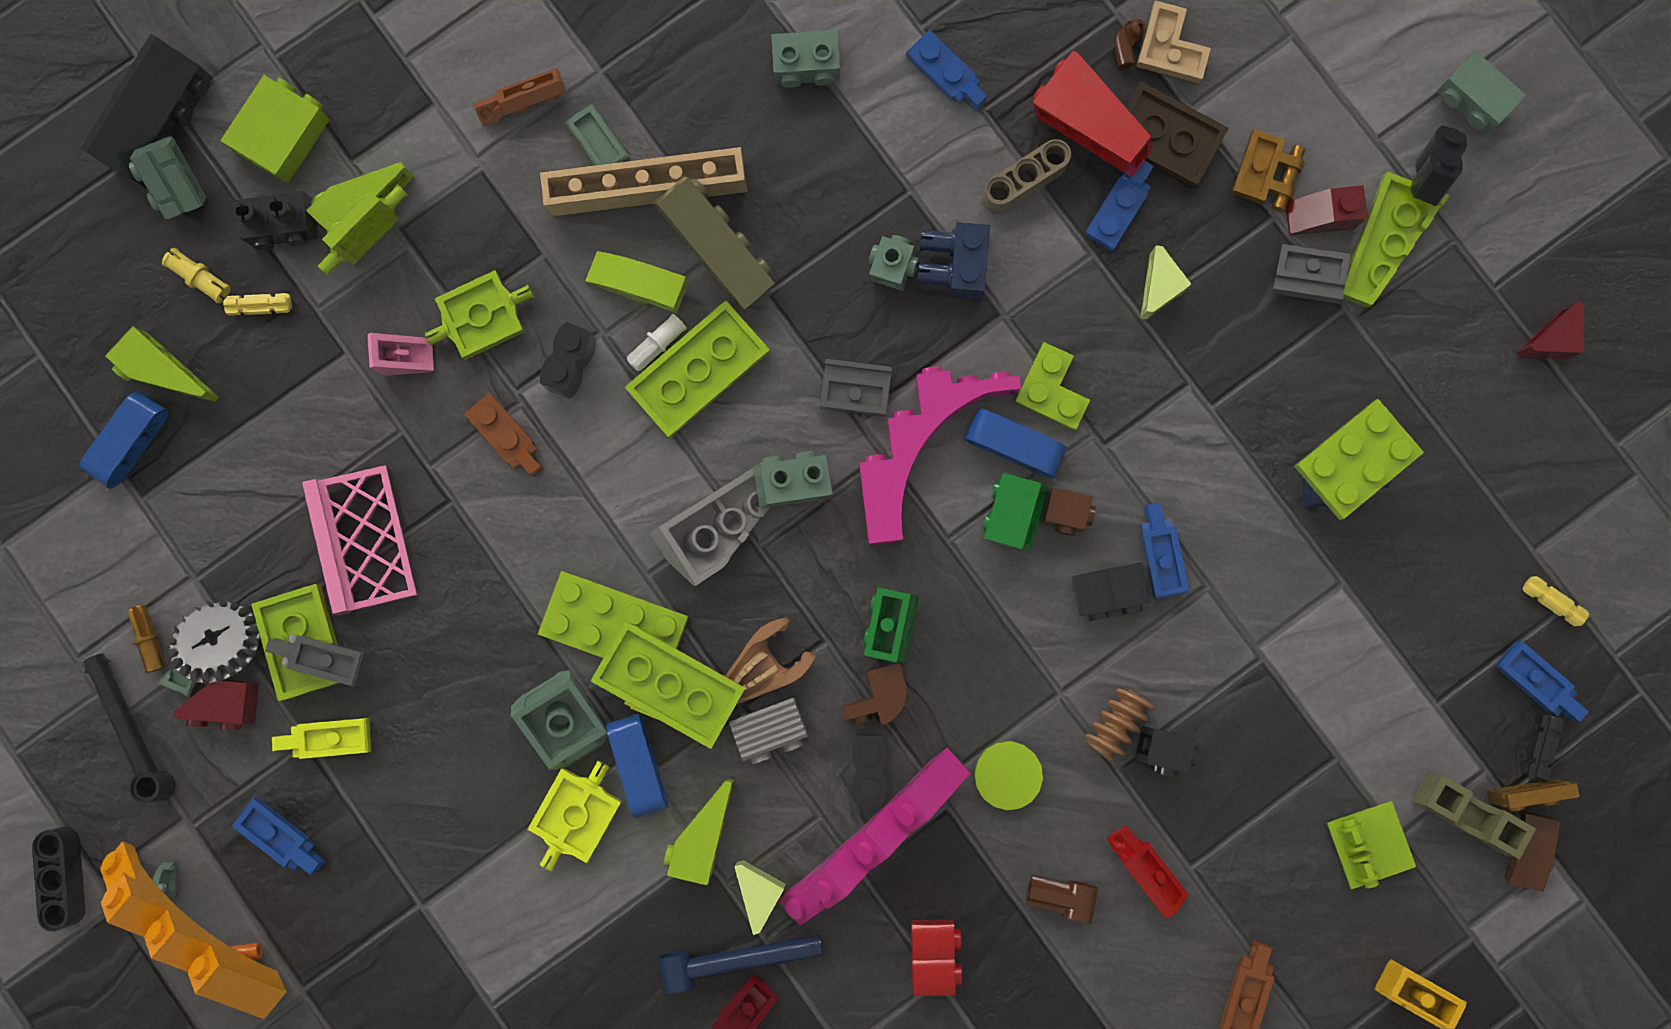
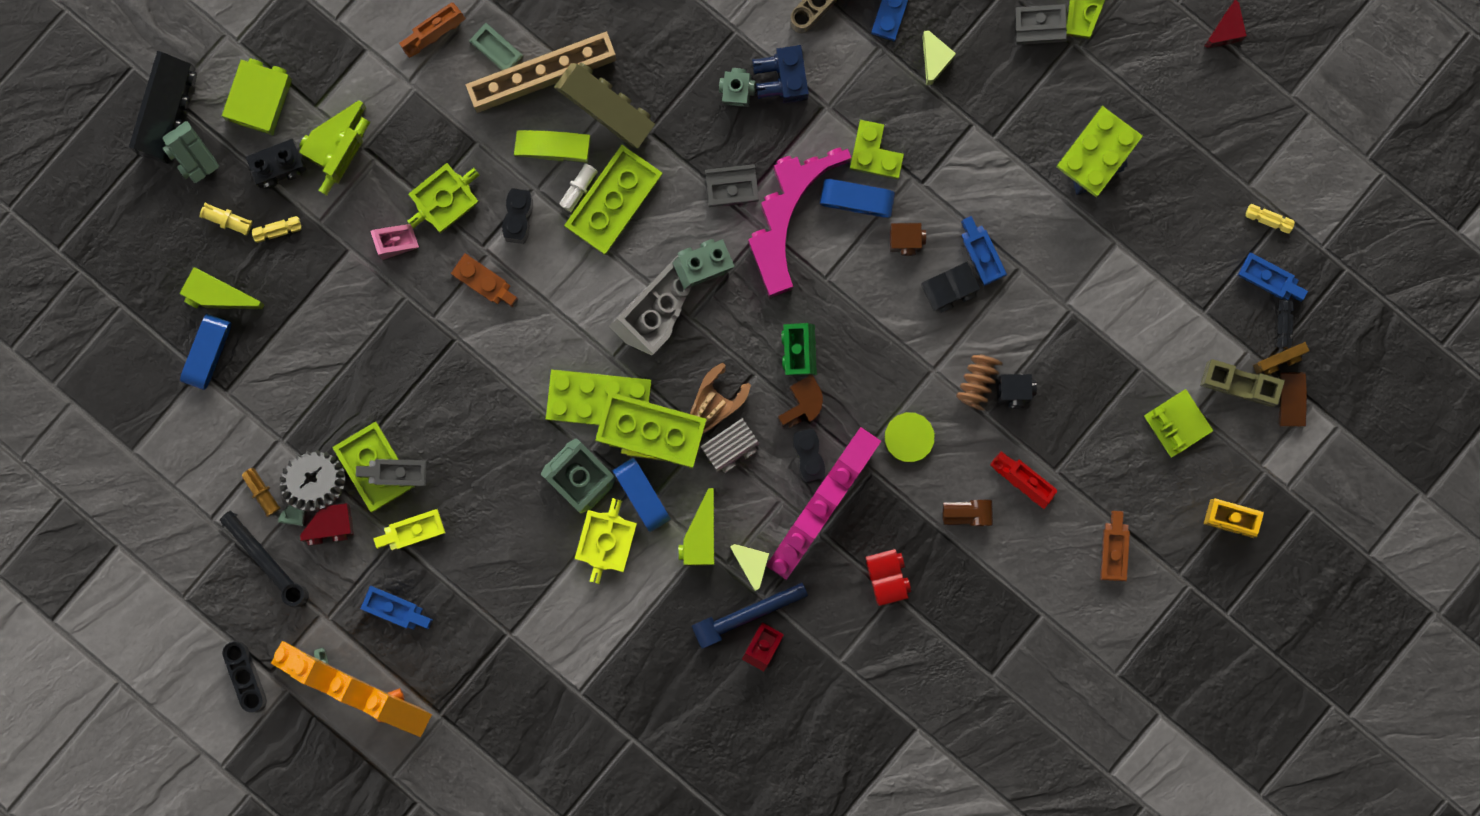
camera: 25 degrees left, 0 degrees up
(330, 547) = (379, 394): bright pink fence -> none
(1015, 512) = (869, 247): green brick -> none

